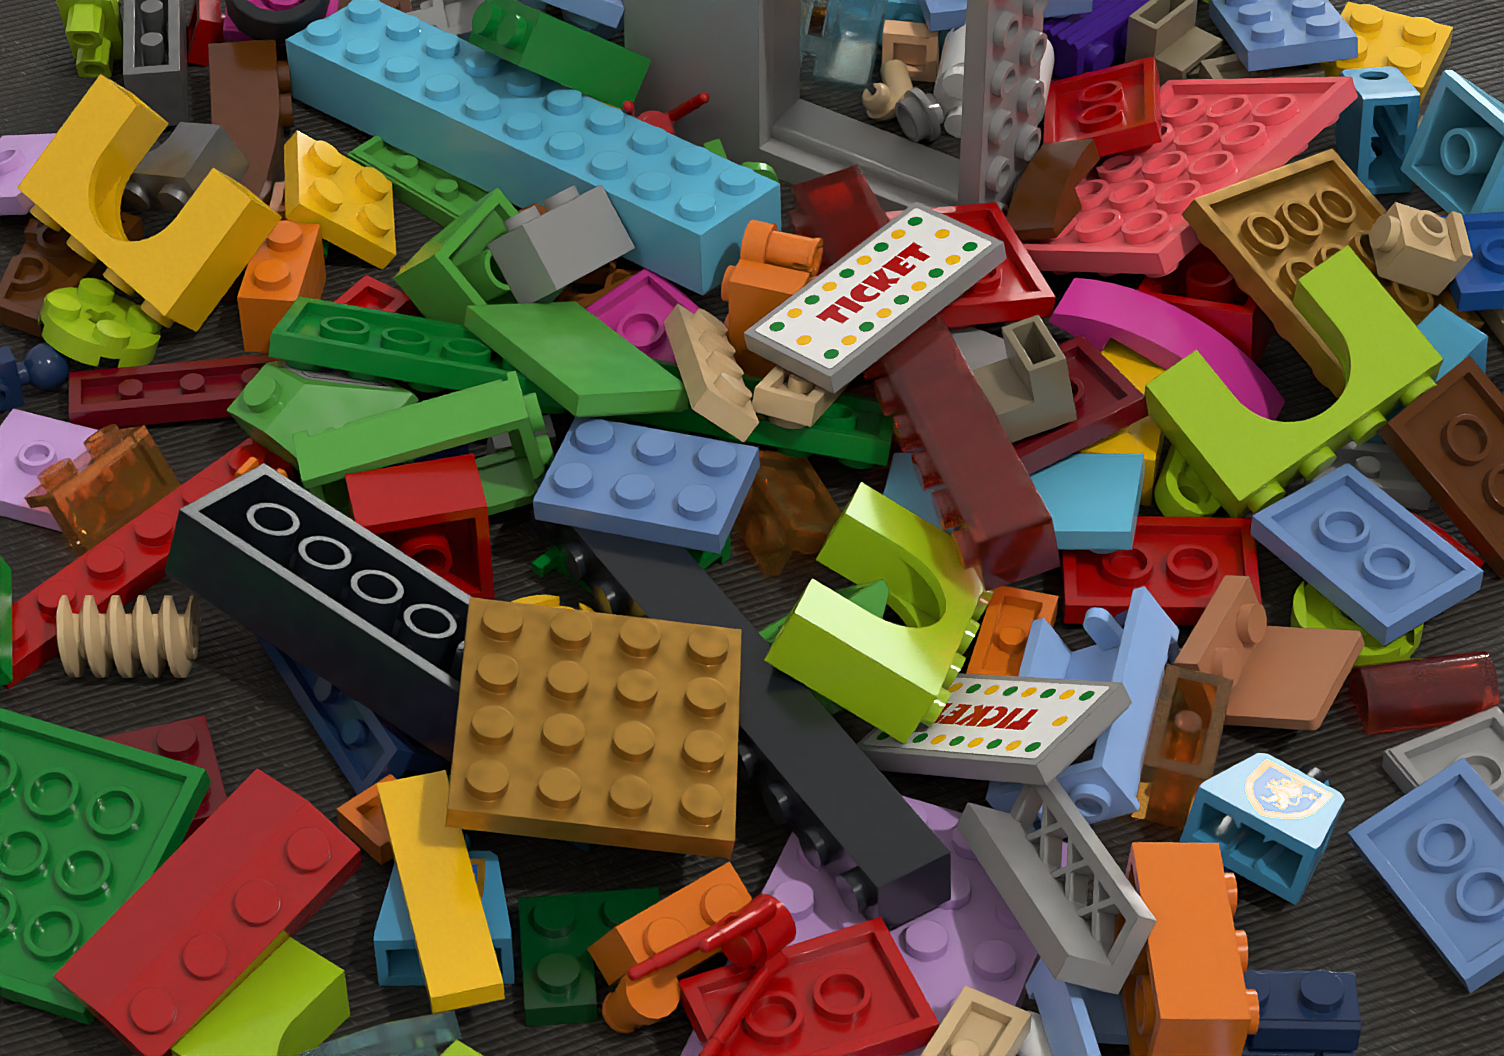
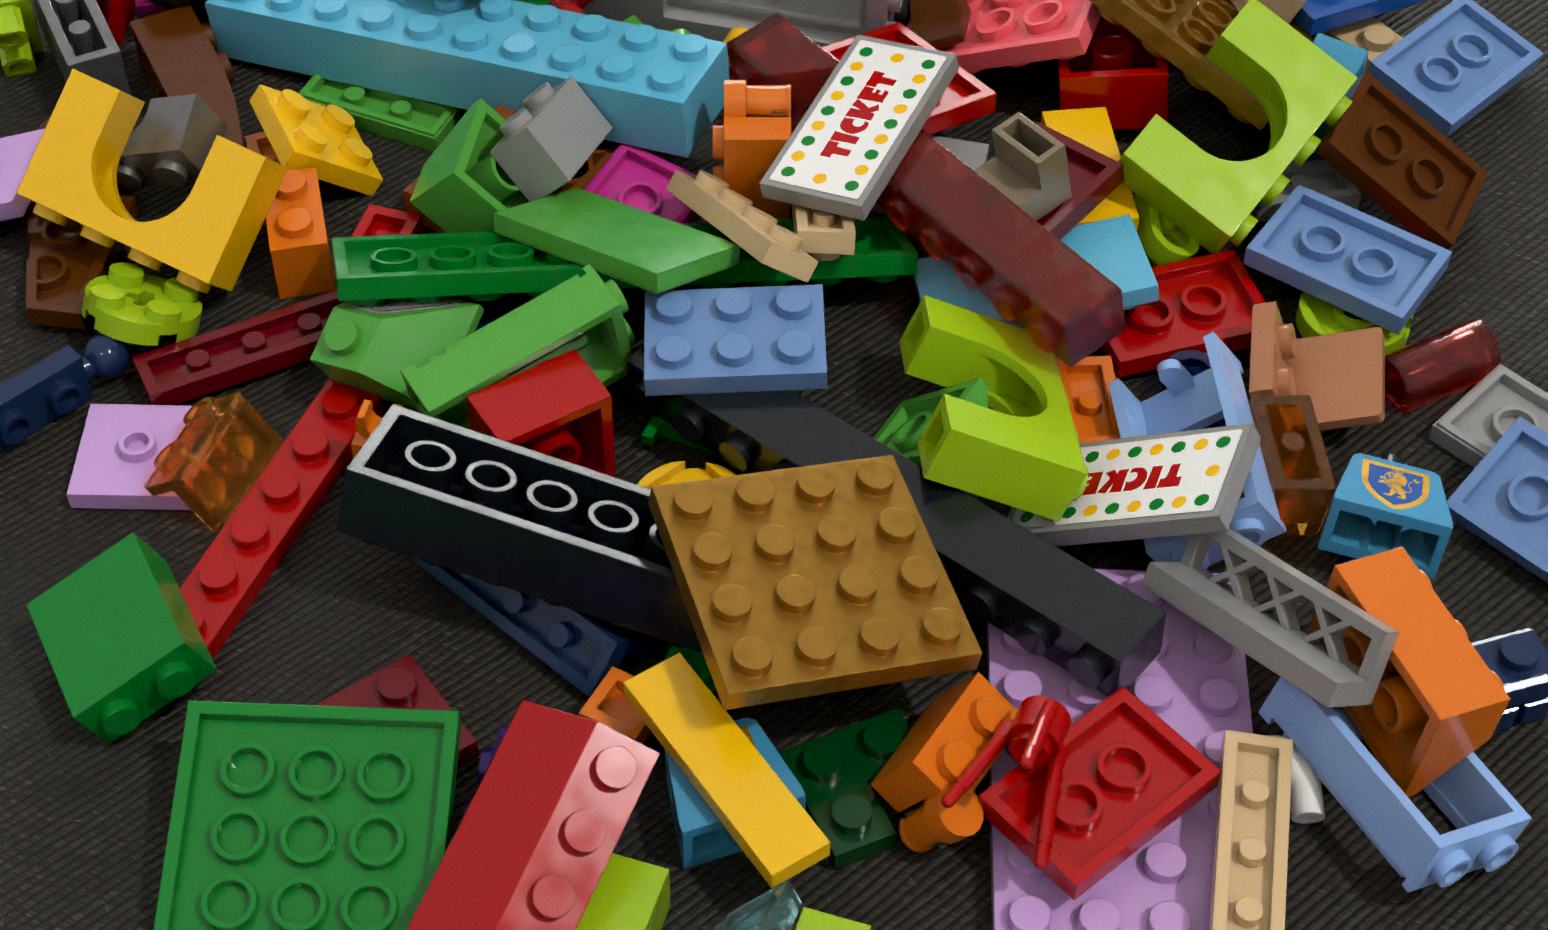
camera: 20 degrees left, 5 degrees up
(128, 637) = (307, 596): tan piece -> none
(785, 511) = (855, 340): clear orange bracket -> none
(1163, 336) = (1081, 101): dark pink slope -> none

